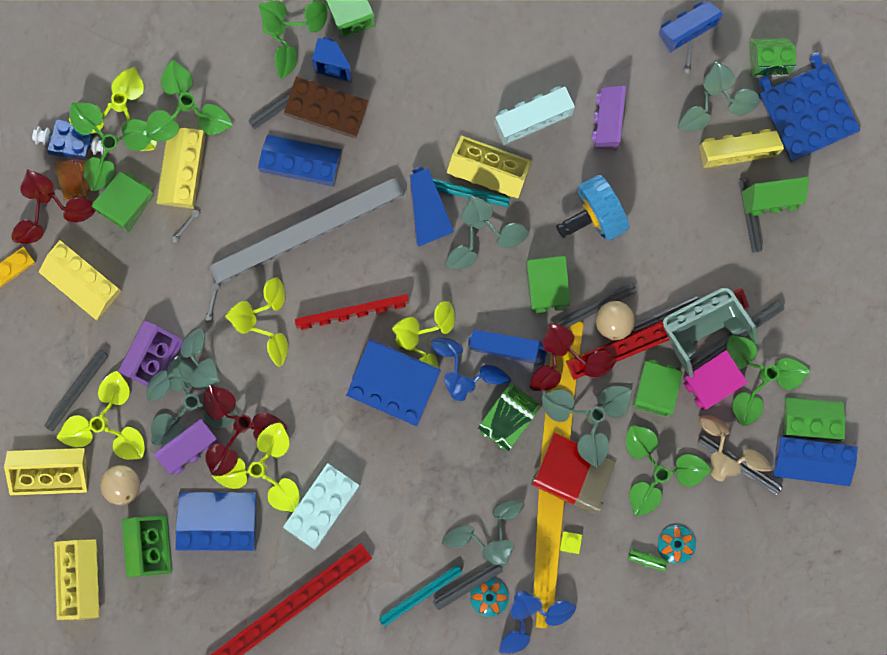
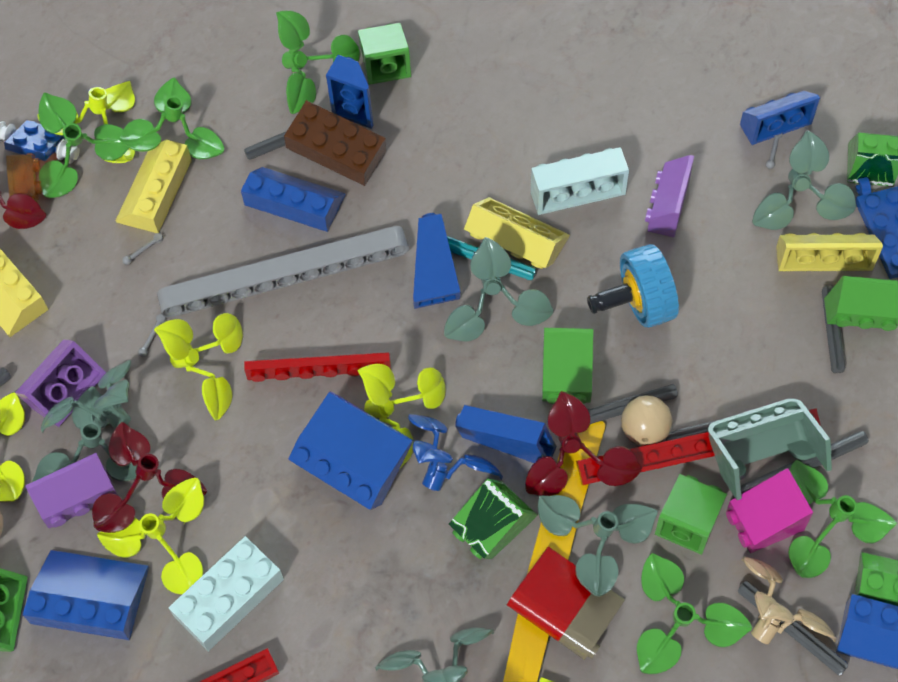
camera: 15 degrees right, 20 degrees down
(123, 200) = (75, 209): bright green slope -> none

